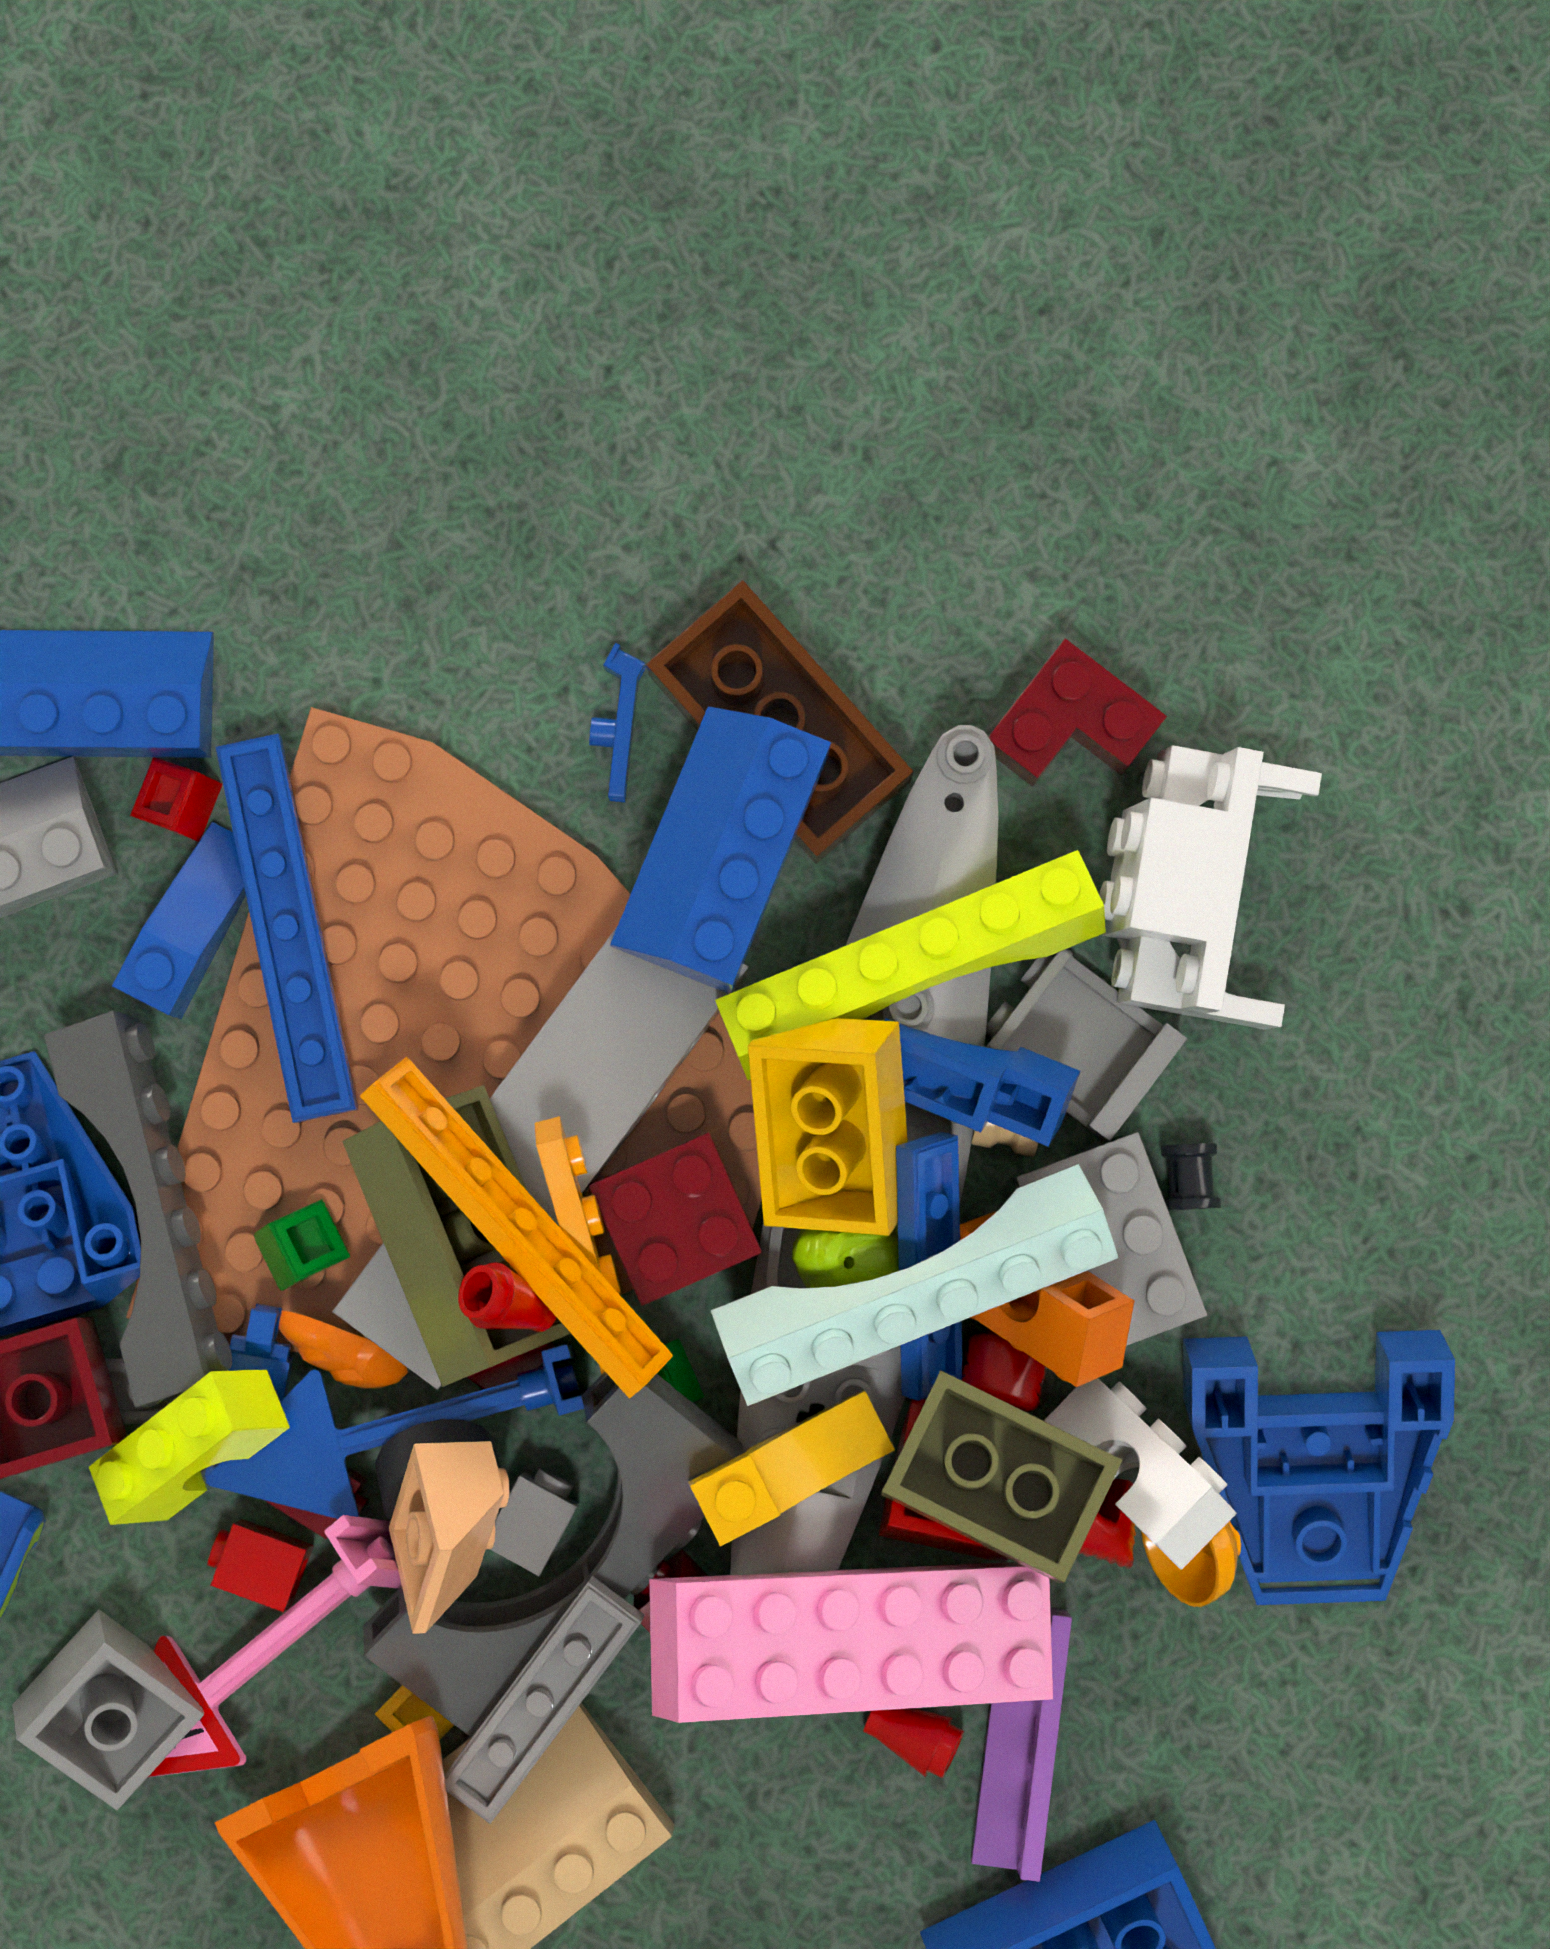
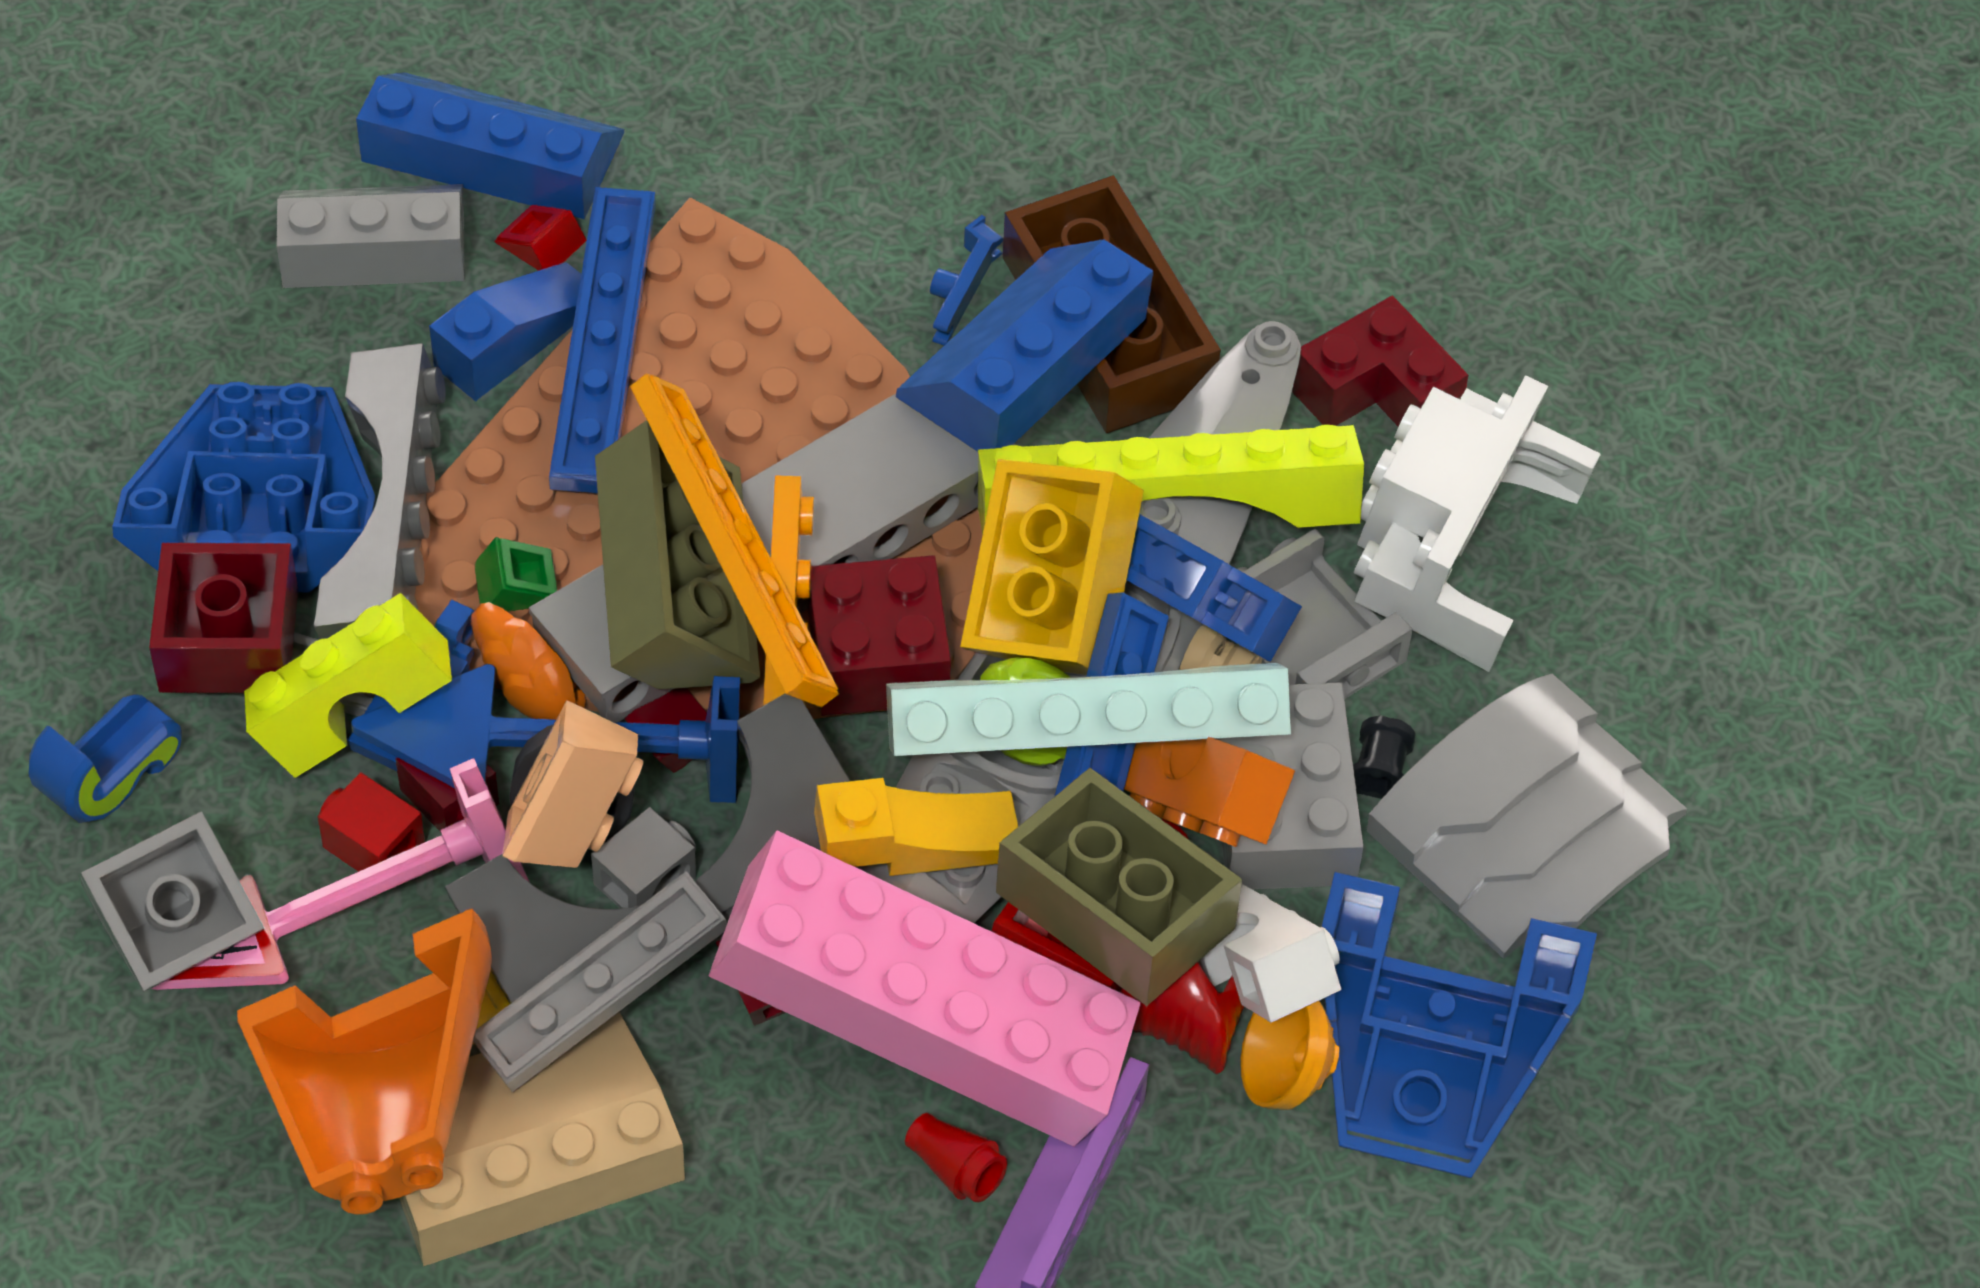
camera: 10 degrees right, 30 degrees down
(502, 1299) = (699, 582): red cone -> none
(1353, 1199) = (1526, 815): none -> light grey slope

